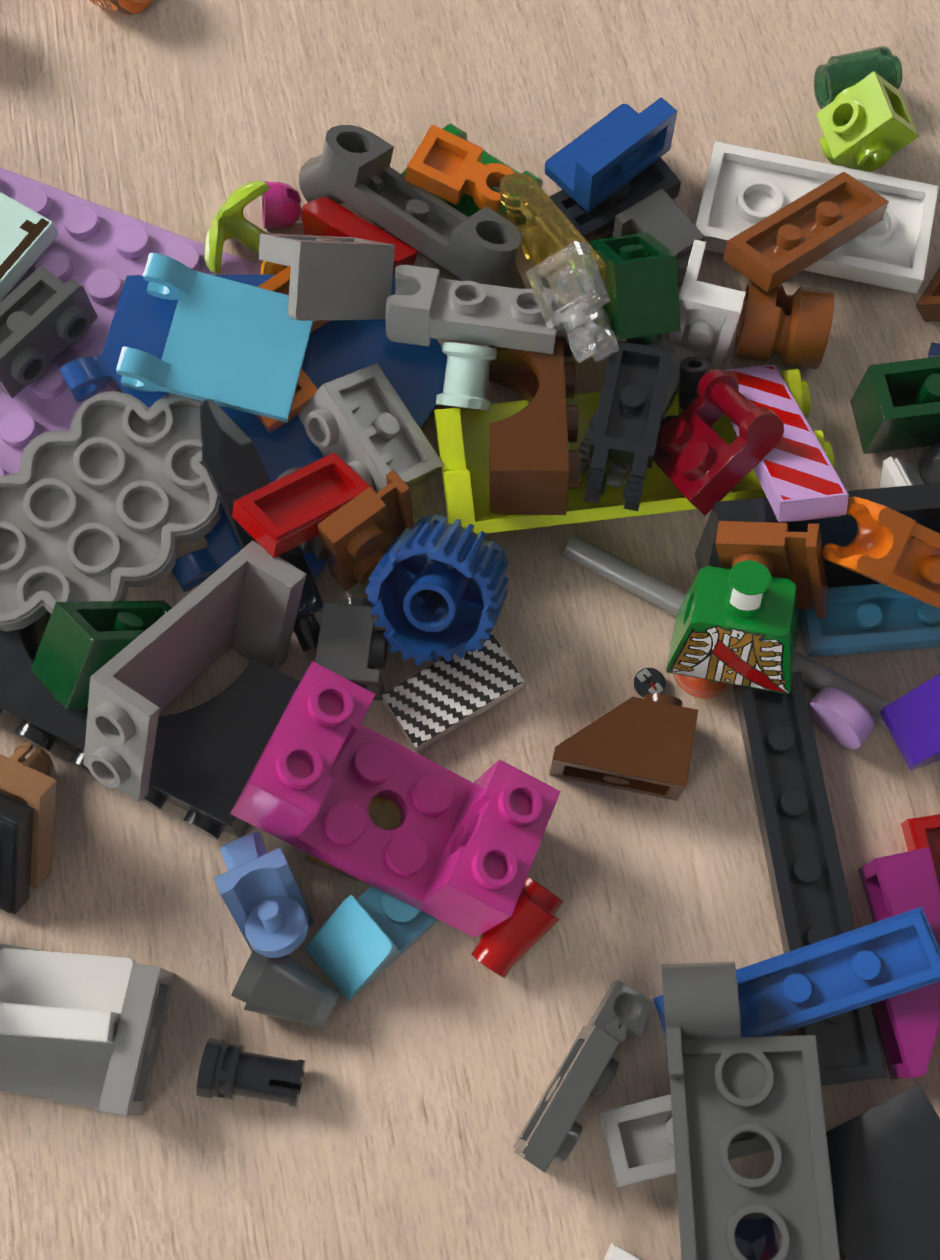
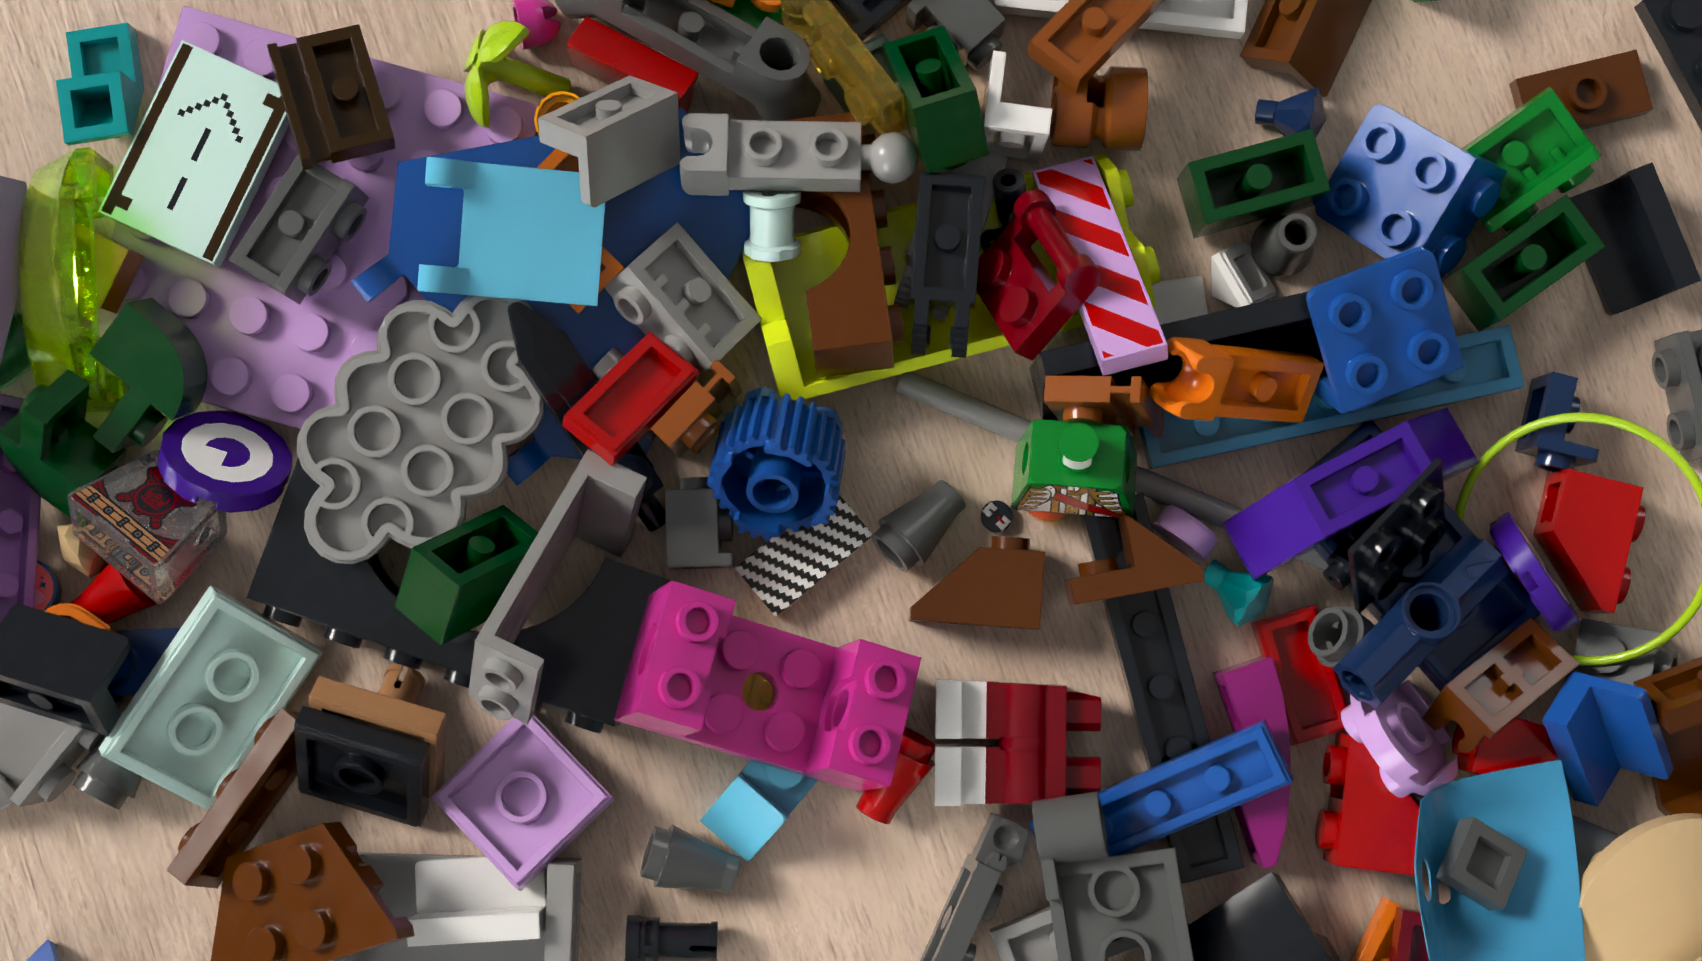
camera: 10 degrees left, 15 degrees up
(81, 226) = (331, 97): none -> dark brown plate
(124, 897) = (522, 799): none -> lavender plate
(263, 897) = (658, 790): medium blue hips -> none
(567, 680) = (915, 528): none -> dark grey cone
(568, 297) = (873, 141): clear plate -> none
(664, 899) = (1030, 745): none -> dark red hips
(806, 736) = (1150, 567): none -> reddish brown slope
(894, 786) = (1238, 592): none -> teal rock

